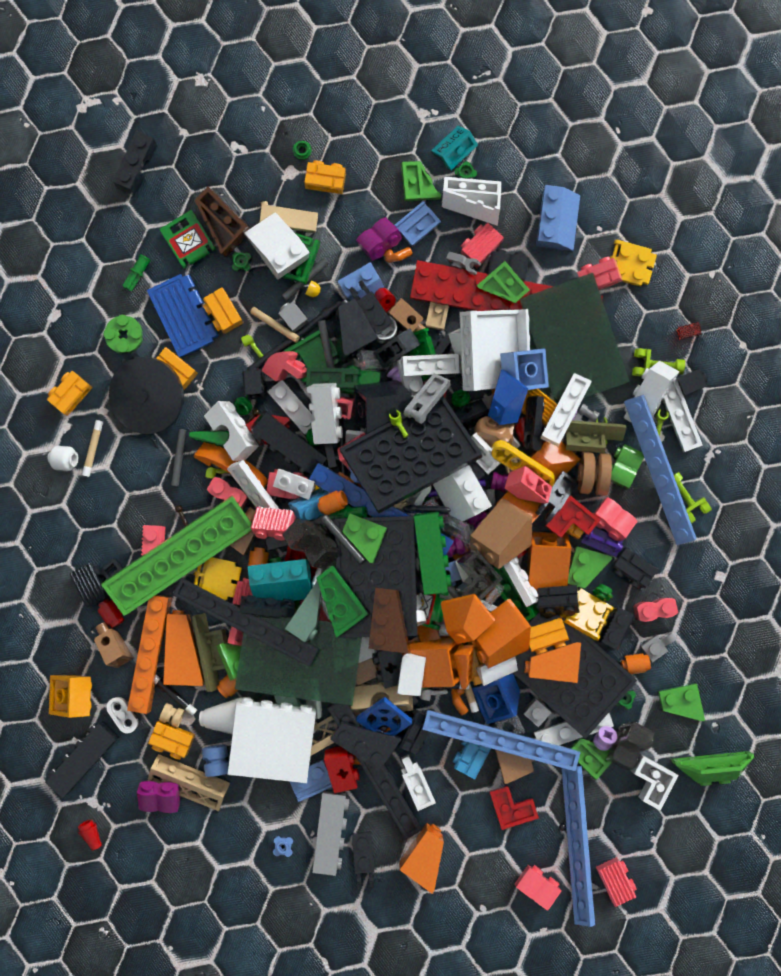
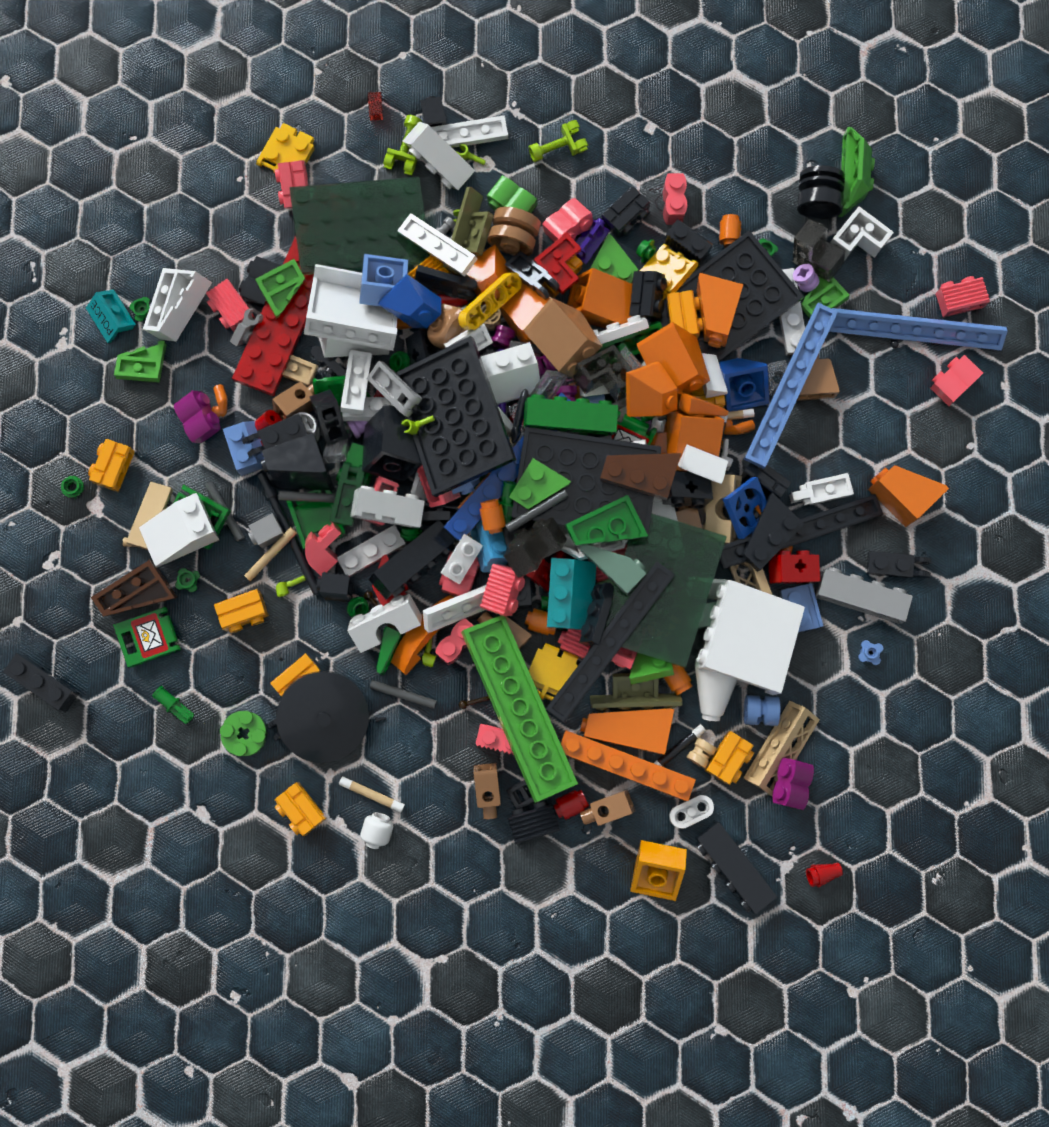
camera: 85 degrees left, 5 degrees down
(111, 541) = (487, 780): none -> medium nougat torso
(180, 315) = (237, 661): blue hinge -> none
(313, 289) = (238, 504): yellow hinge -> none
(417, 224) = (189, 371): medium blue plate -> none
(470, 759) = (804, 425): dark azure brick -> none
(510, 813) = (871, 395): red plate -> none
(528, 486) = (514, 300): coral slope -> none
(536, 712) = (765, 345): light grey brick -> none
(558, 218) = (218, 220): medium blue slope -> none
(656, 647) = (714, 206): light grey plate -> none
(660, 469) = (522, 162): medium blue plate -> none
(682, 701) = (778, 192): bright green wing -> none
(691, 739) = (821, 192): none -> black wheel

